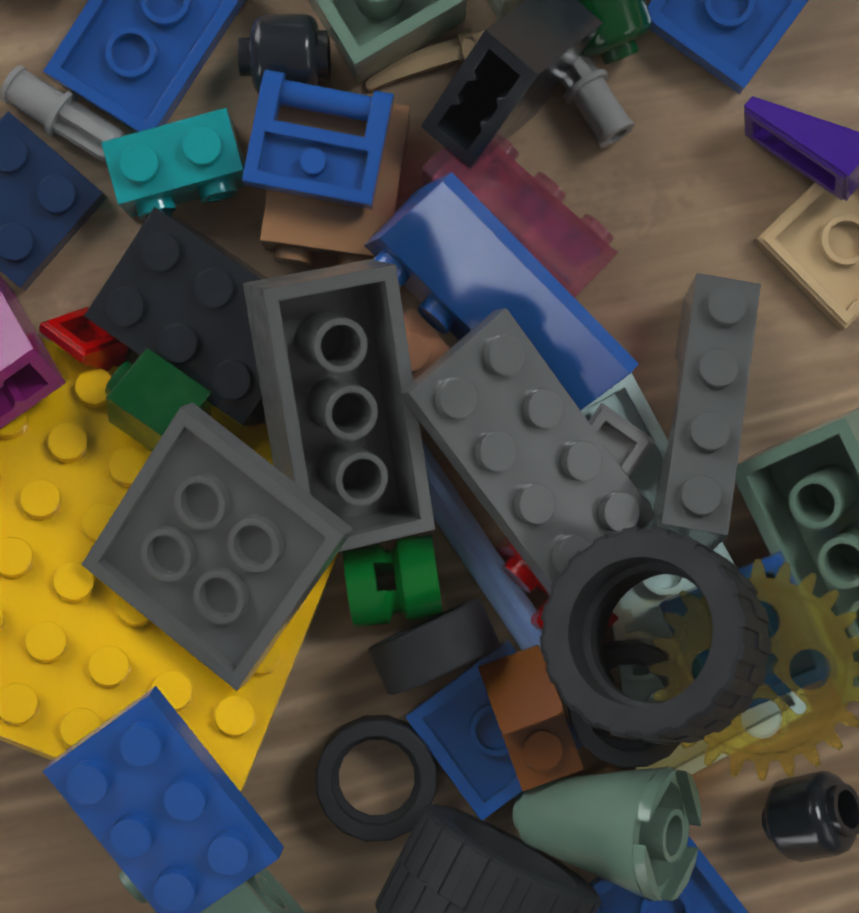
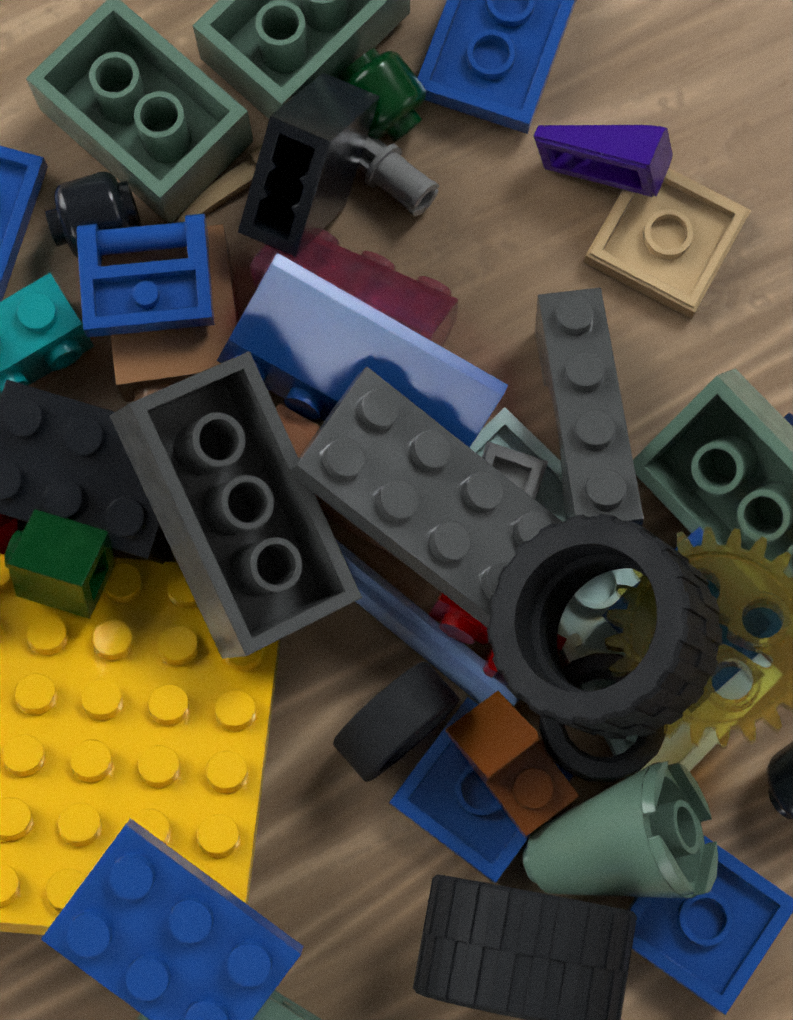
camera: 15 degrees left, 10 degrees down
(216, 545) = (152, 669): dark grey plate -> none
(331, 797) = (329, 868): black tyre -> none
(415, 578) = (359, 661): green wheel -> none

